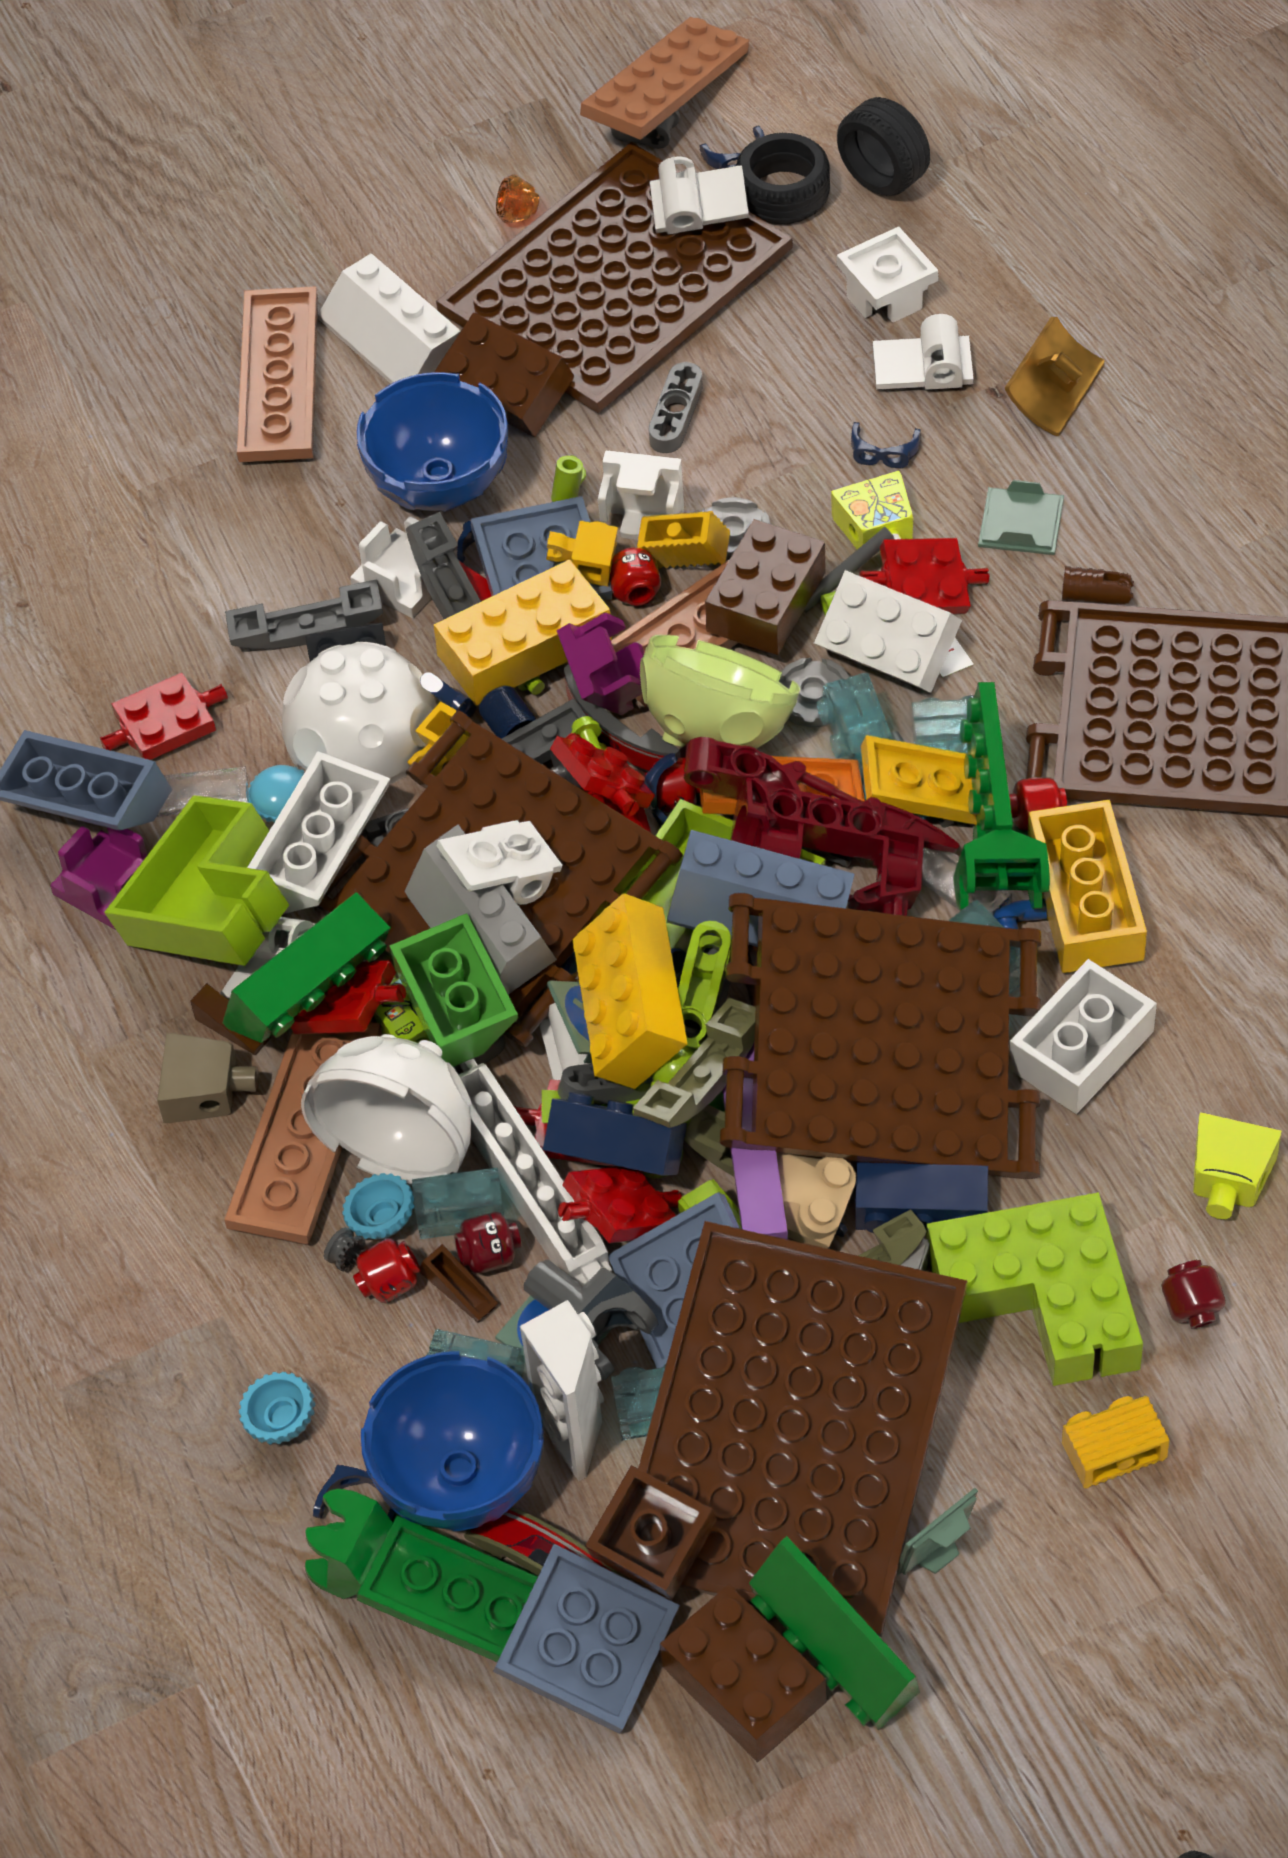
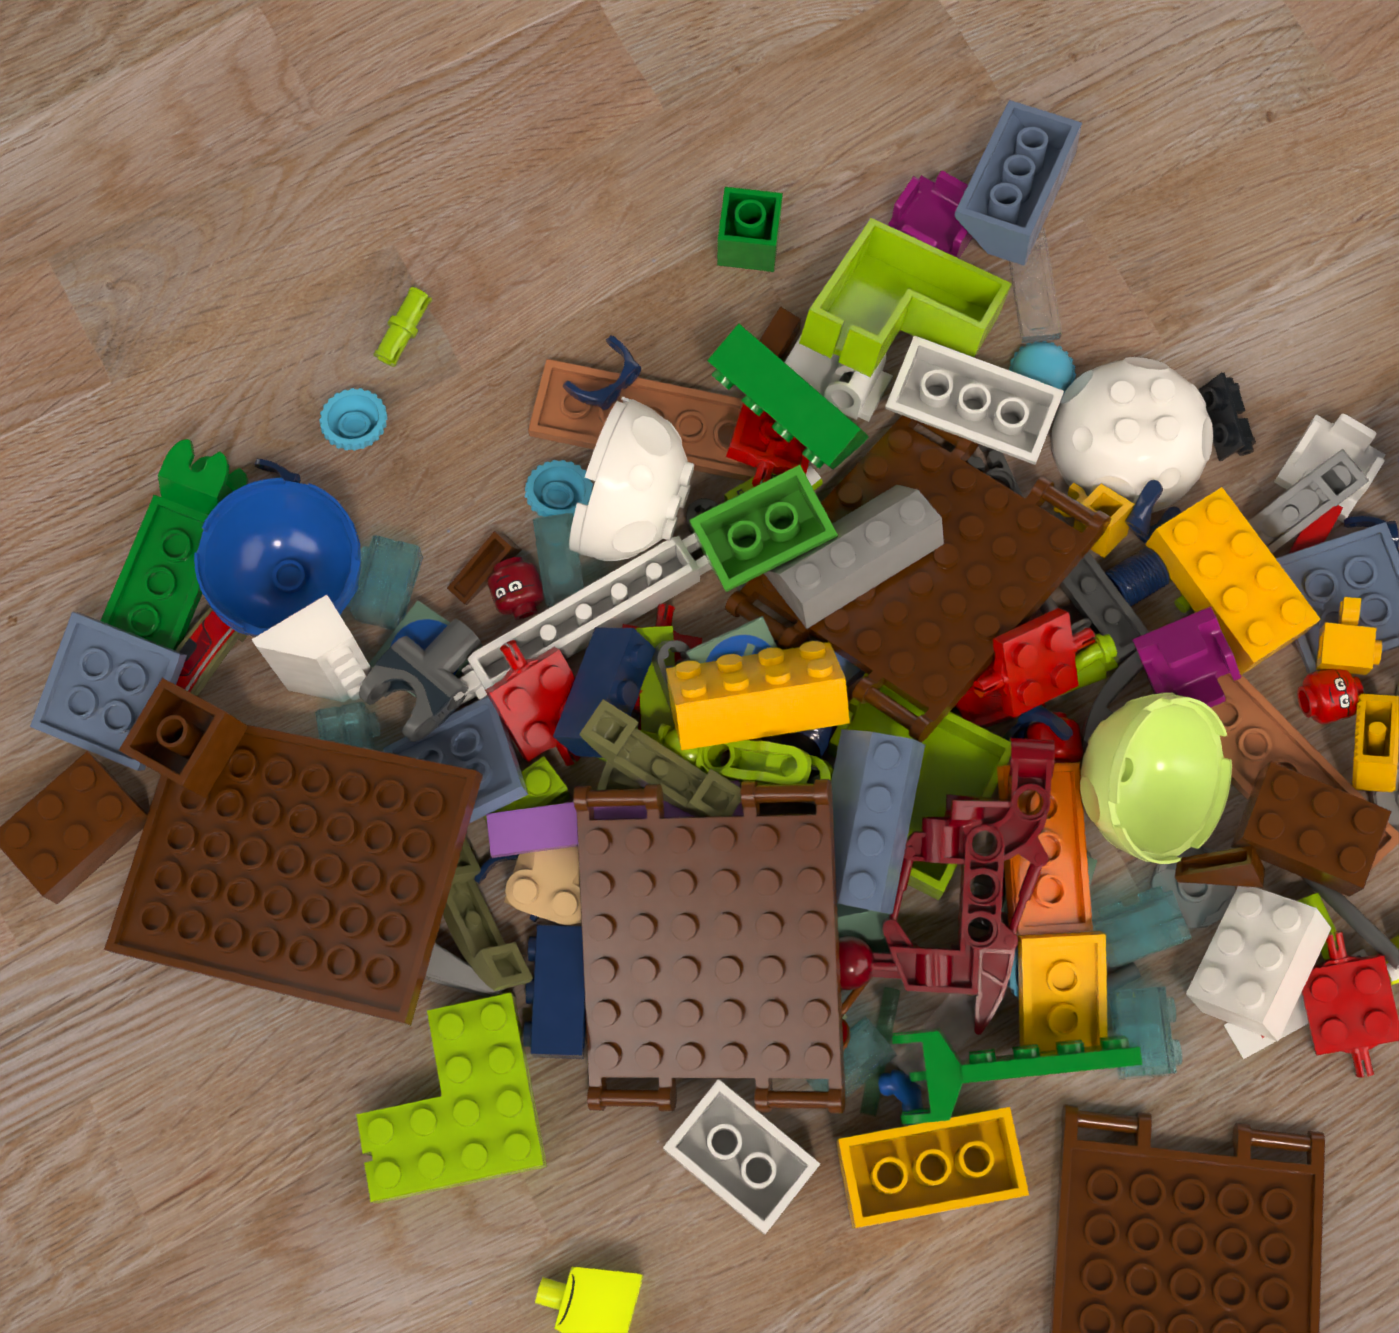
camera: 85 degrees right, 20 degrees up
(97, 1029) = (749, 229): none -> green head
(163, 717) = (1128, 256): plate -> none
(167, 1366) = (402, 327): none -> lime pin
(200, 1078) = (699, 323): dark tan torso -> none
(252, 1135) = (607, 396): none -> dark blue cap
(287, 627) = (1252, 368): dark grey slope -> none
(344, 1249) = (517, 464): dark grey bush -> none
(386, 1270) = (491, 502): red head -> none
(503, 855) = (889, 545): white piece -> none
(800, 650) = (1225, 867): none -> reddish brown piece
(833, 1635) = (87, 907): green slope -> none
(936, 1544) = (178, 998): sand green piece -> none
(1034, 795) = (1041, 1119): red head -> none
(1096, 586) = (1352, 1198): reddish brown hinge -> none
(1114, 1440) = (289, 1172): yellow brick -> none
(1193, 1293) = (444, 1258): dark red head -> none

